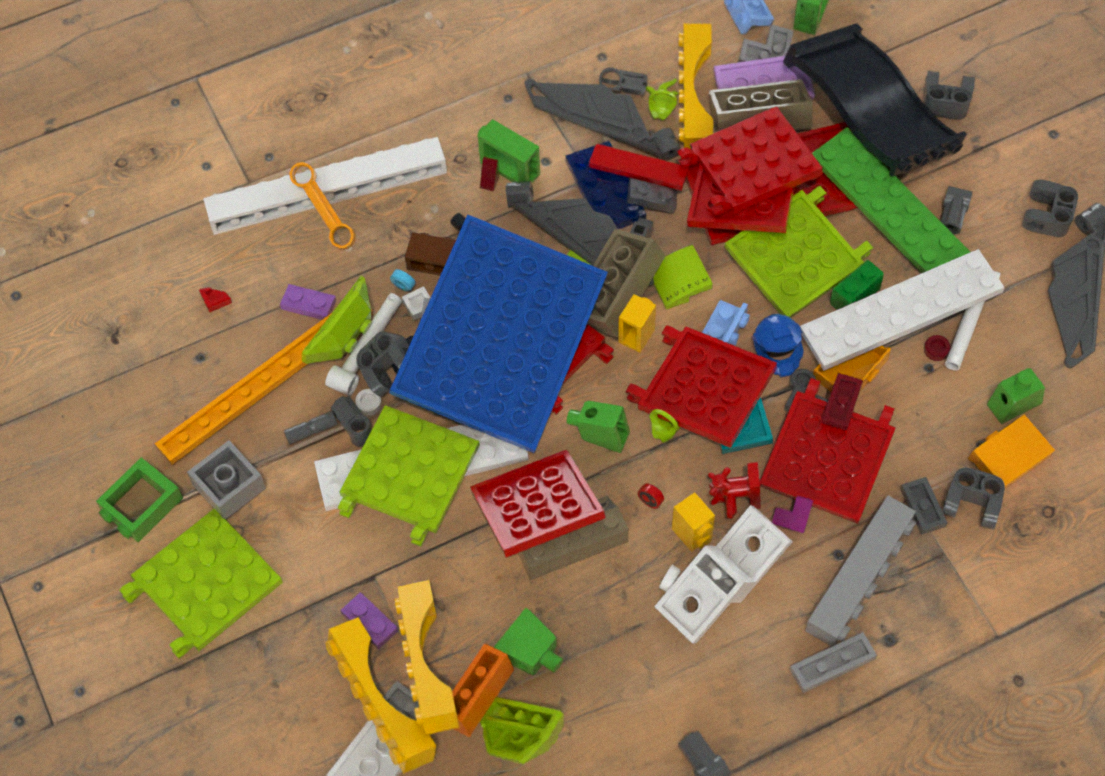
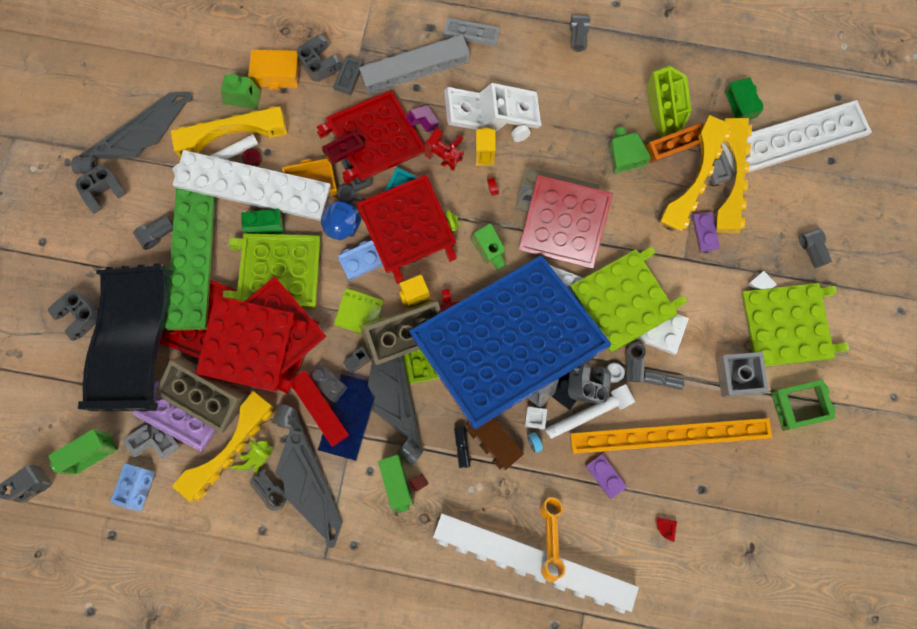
camera: 145 degrees left, 15 degrees up
(230, 692) = (814, 242): none -> dark grey piece
(264, 607) = (762, 281): none -> white tile
(342, 327) = (602, 428): lime wedge -> none
(956, 387) = (194, 138): none -> yellow arch

